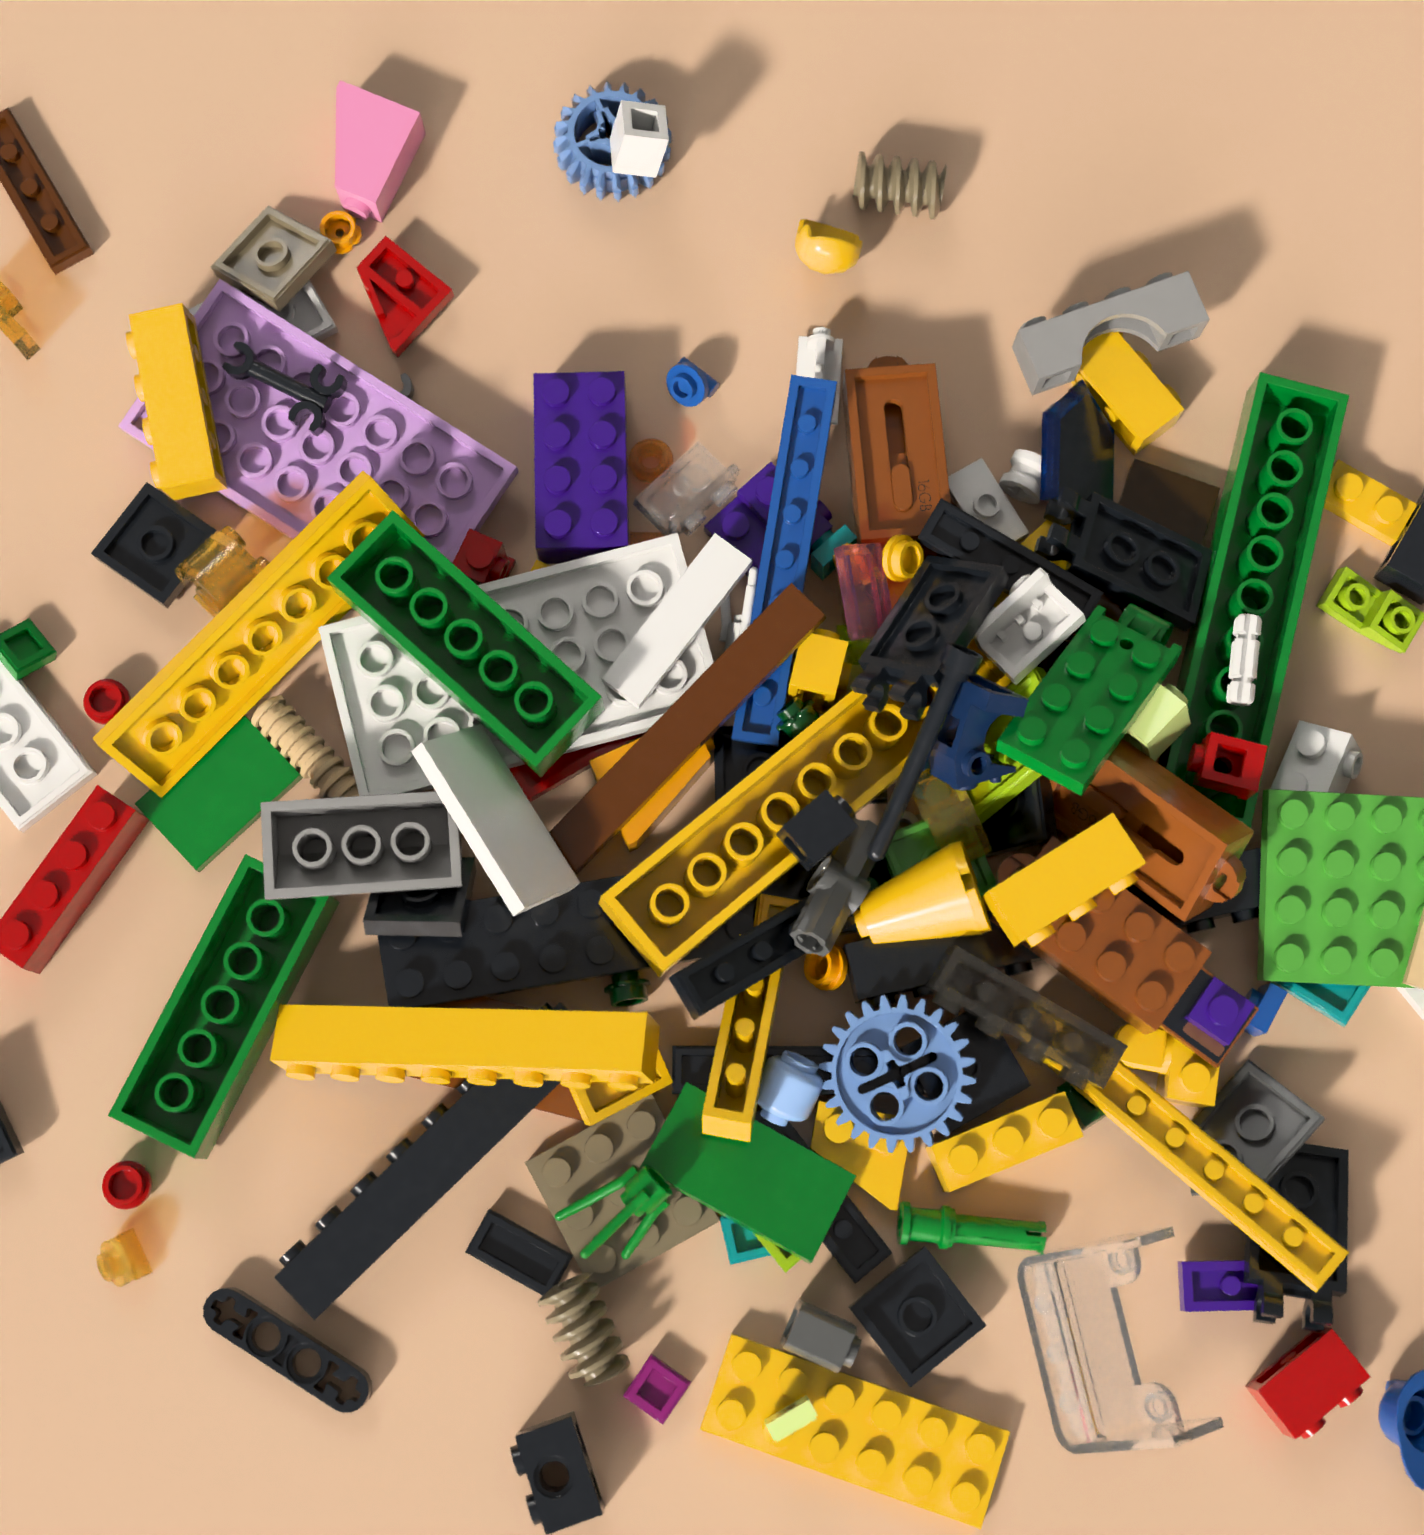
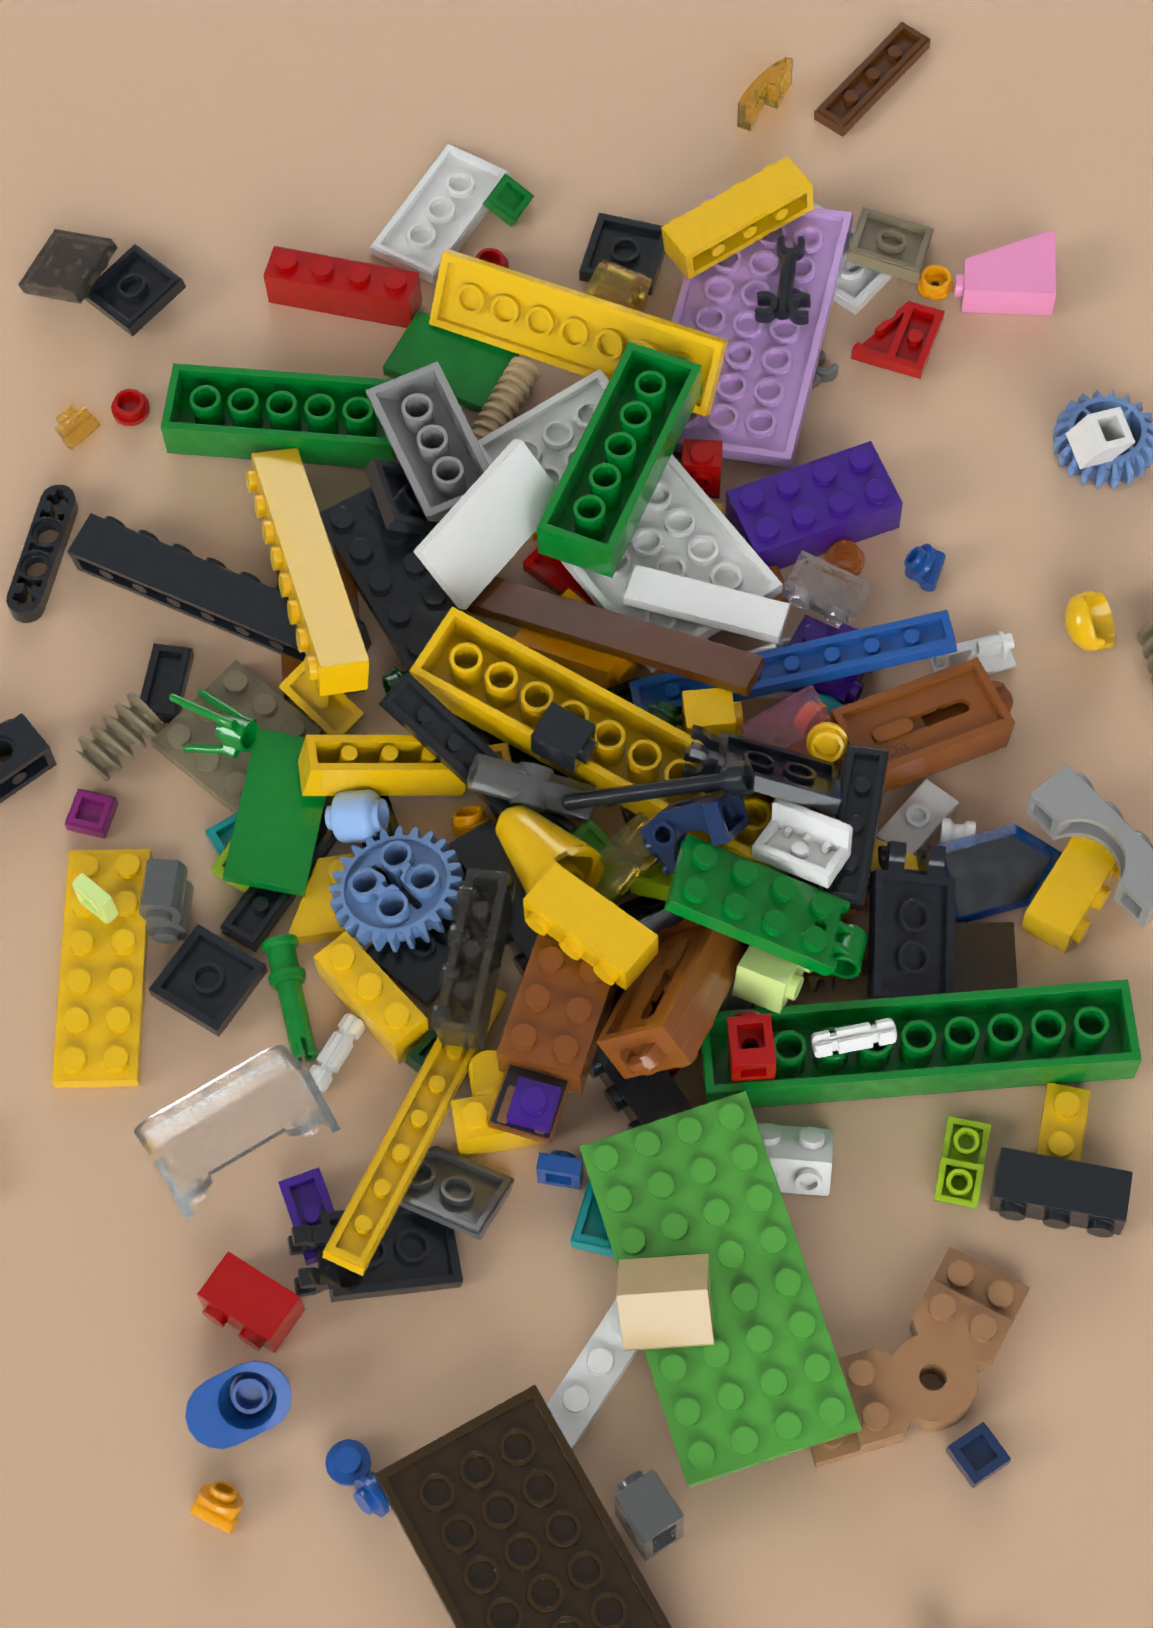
camera: 75 degrees right, 15 degrees down
(1046, 1202) = (336, 1050): none -> white axle

